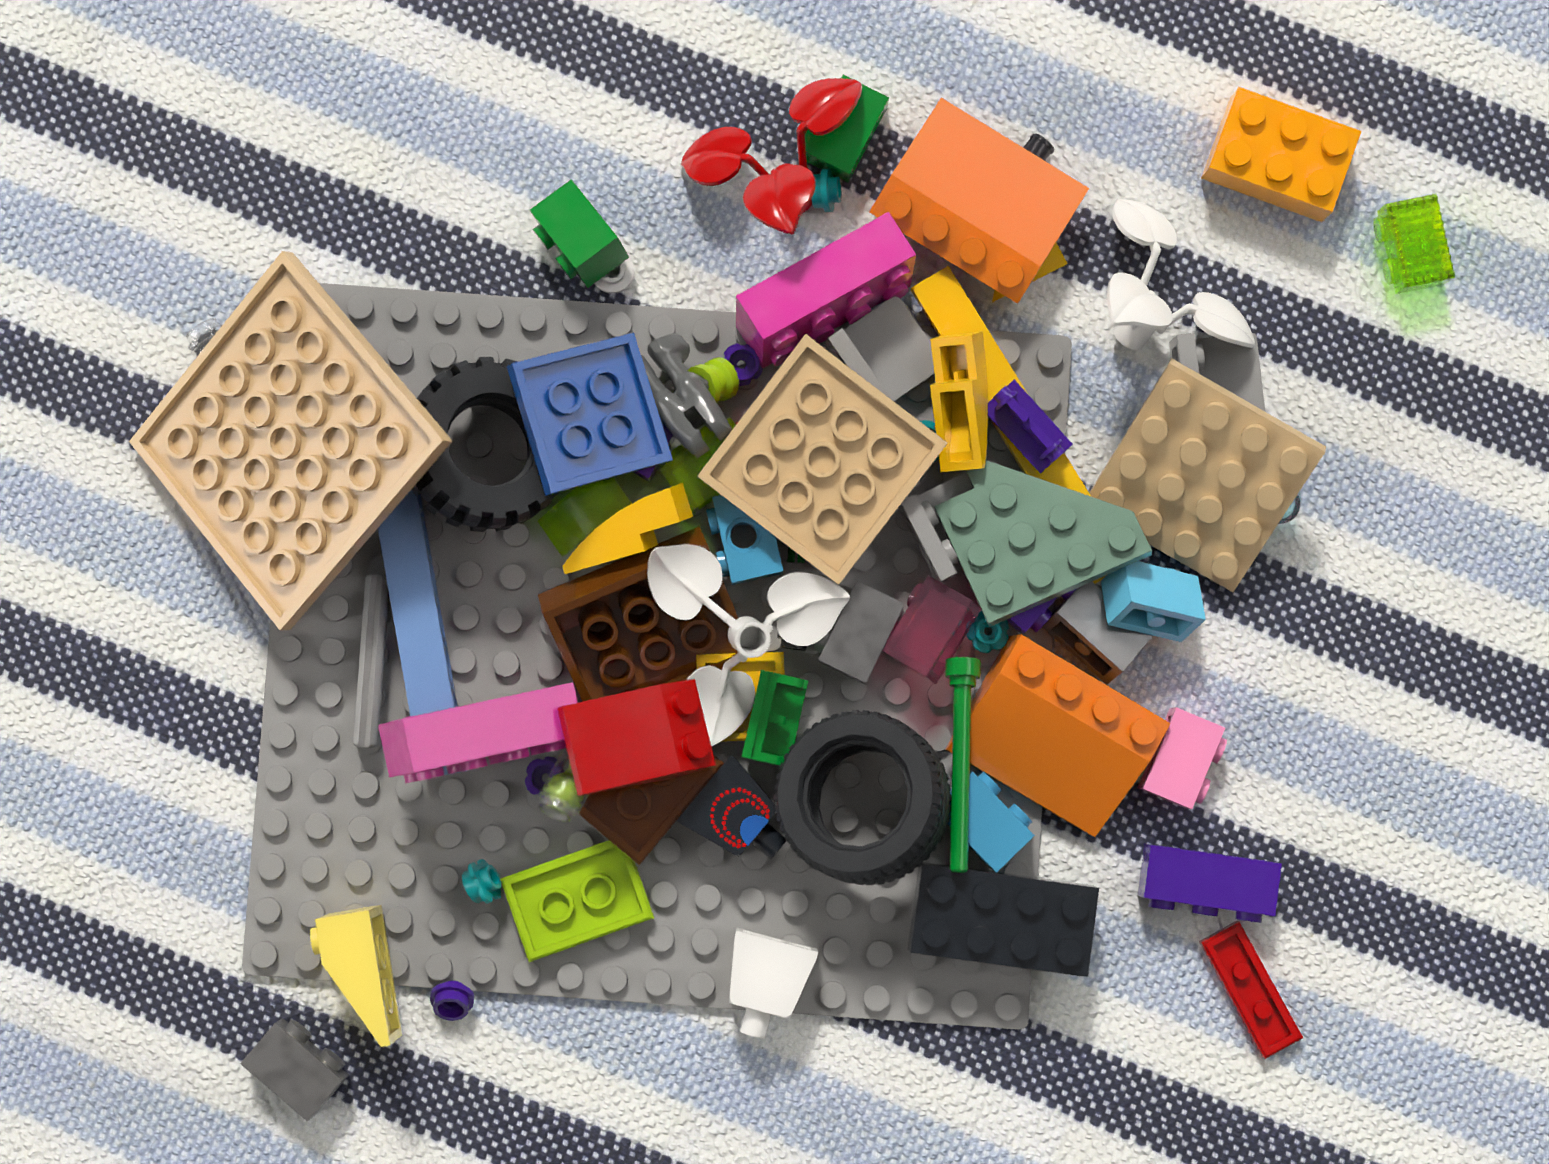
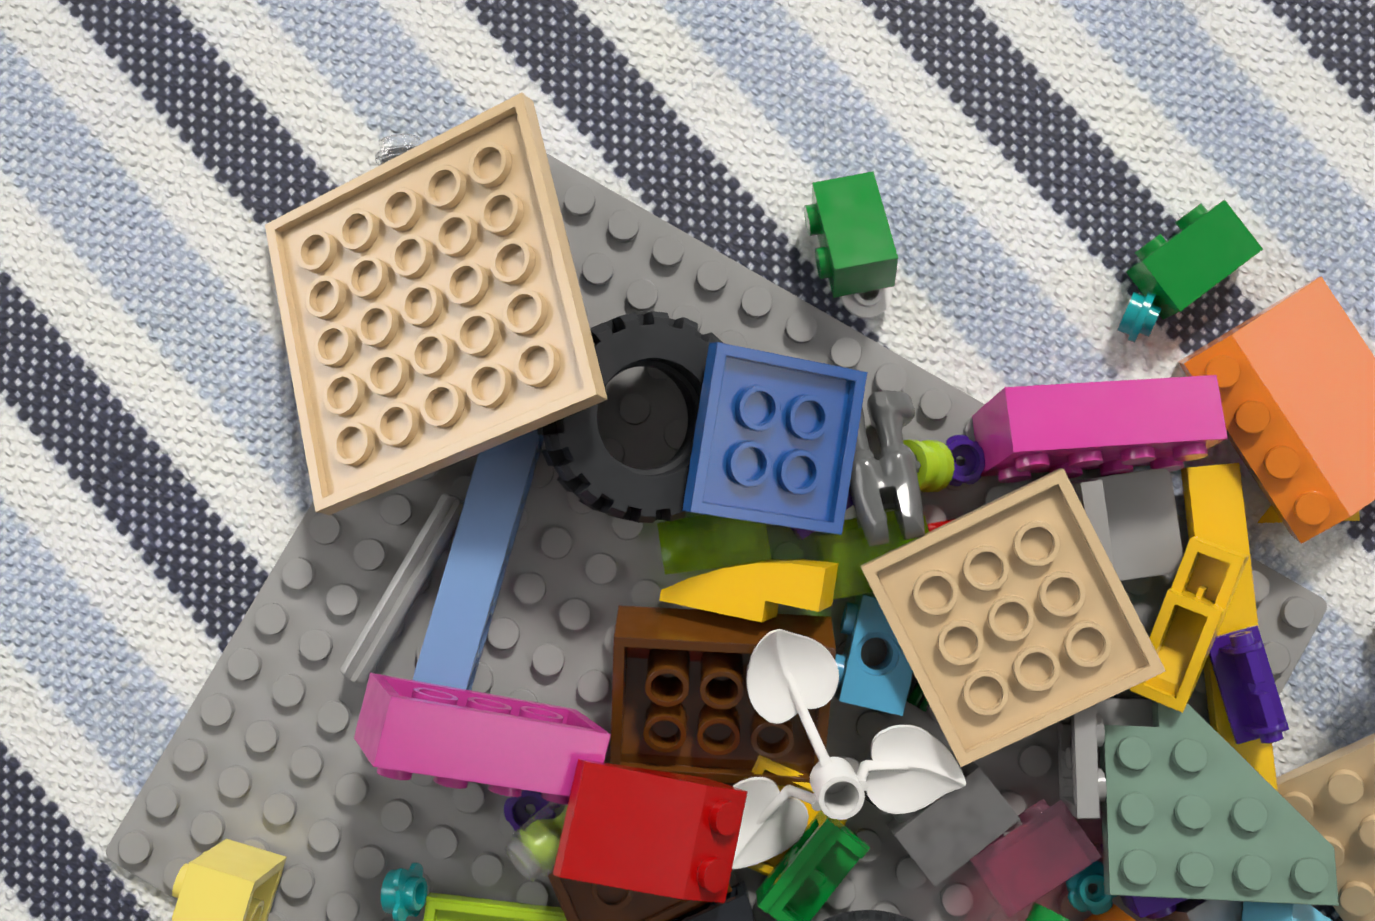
camera: 30 degrees right, 0 degrees up
(788, 191) = (1104, 297): red plant -> none

